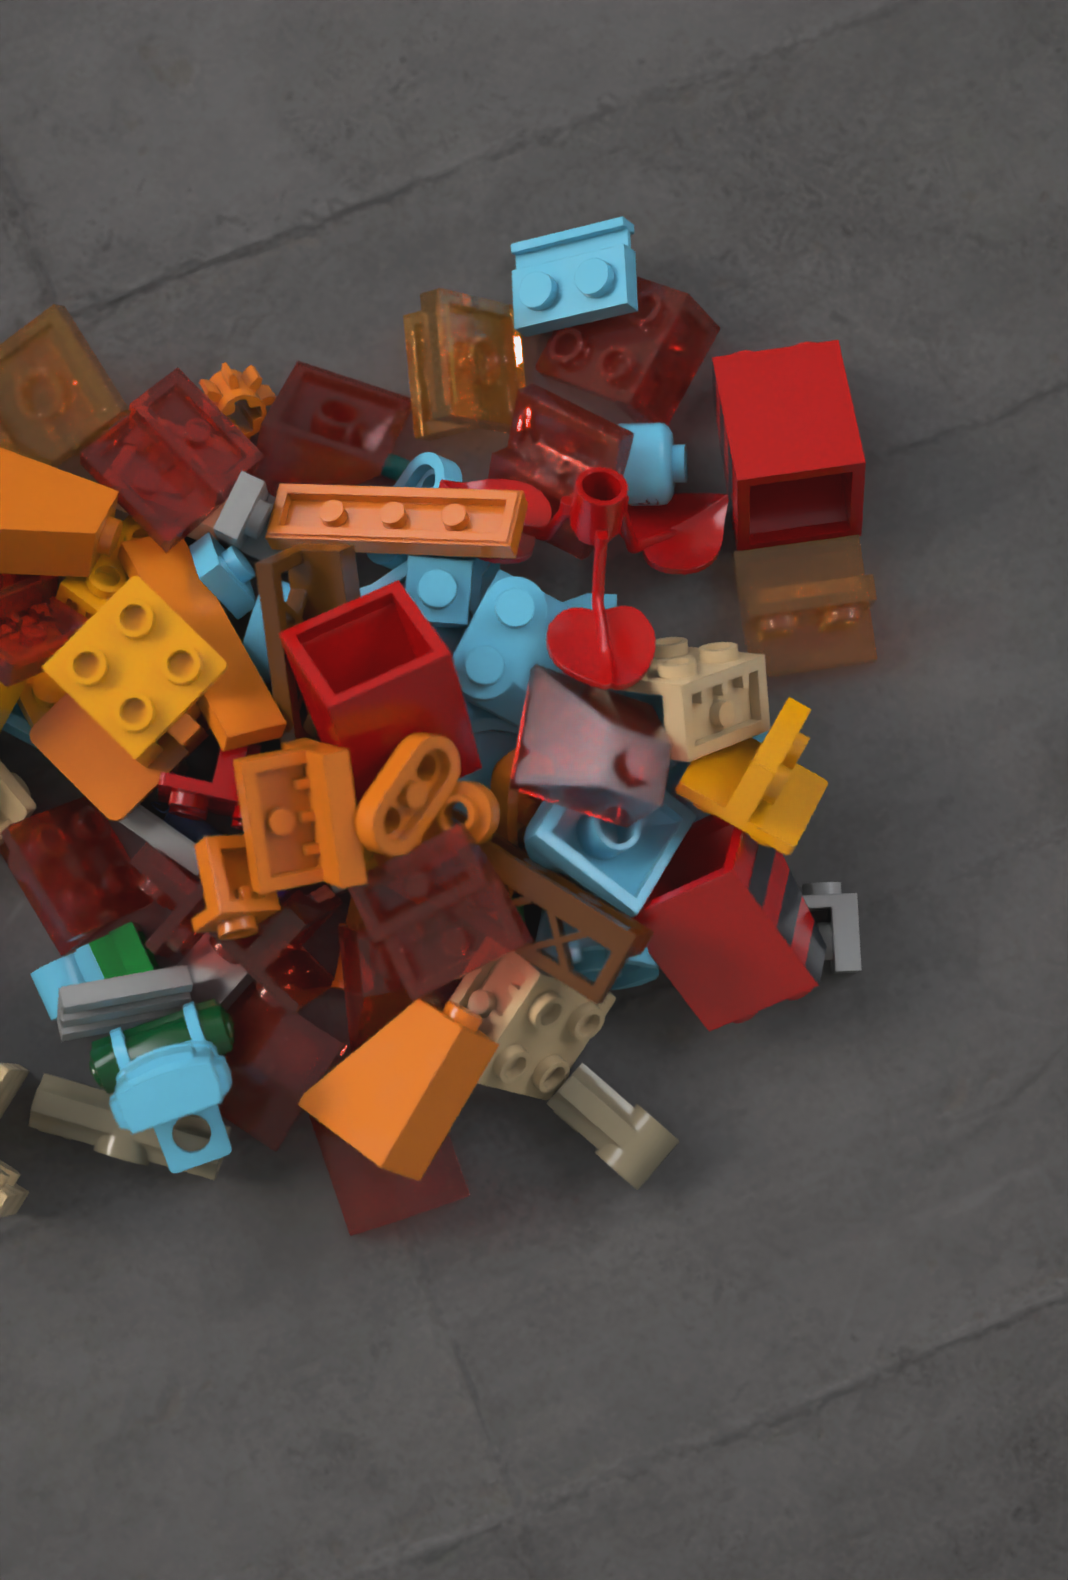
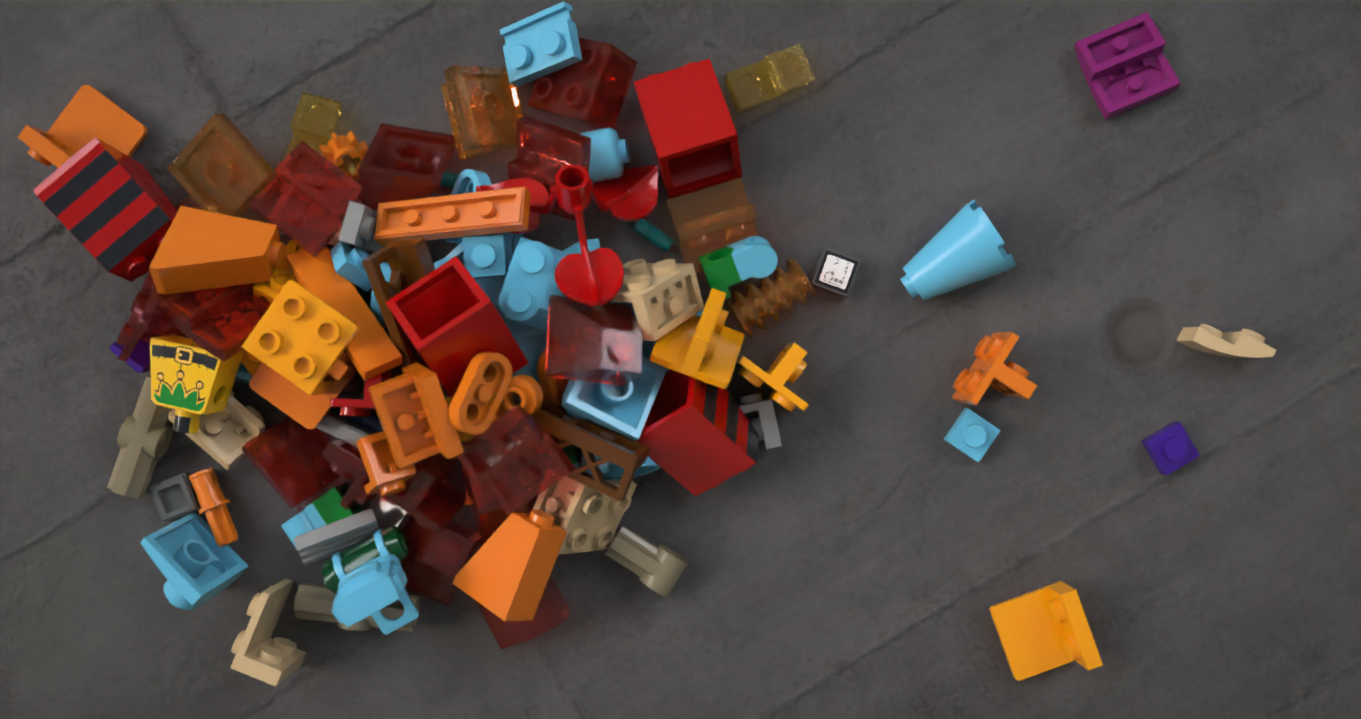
camera: 10 degrees left, 5 degrees up
(194, 341) = (314, 121): none -> clear yellow slope
(704, 604) = (653, 235): none -> teal piece
(835, 666) = (738, 262): none -> leg
(878, 730) = (770, 297): none -> clear orange piece
(884, 847) = (785, 368): none -> light orange bracket
(927, 386) = (769, 78): none -> clear yellow slope
(988, 710) = (835, 272): none -> tile

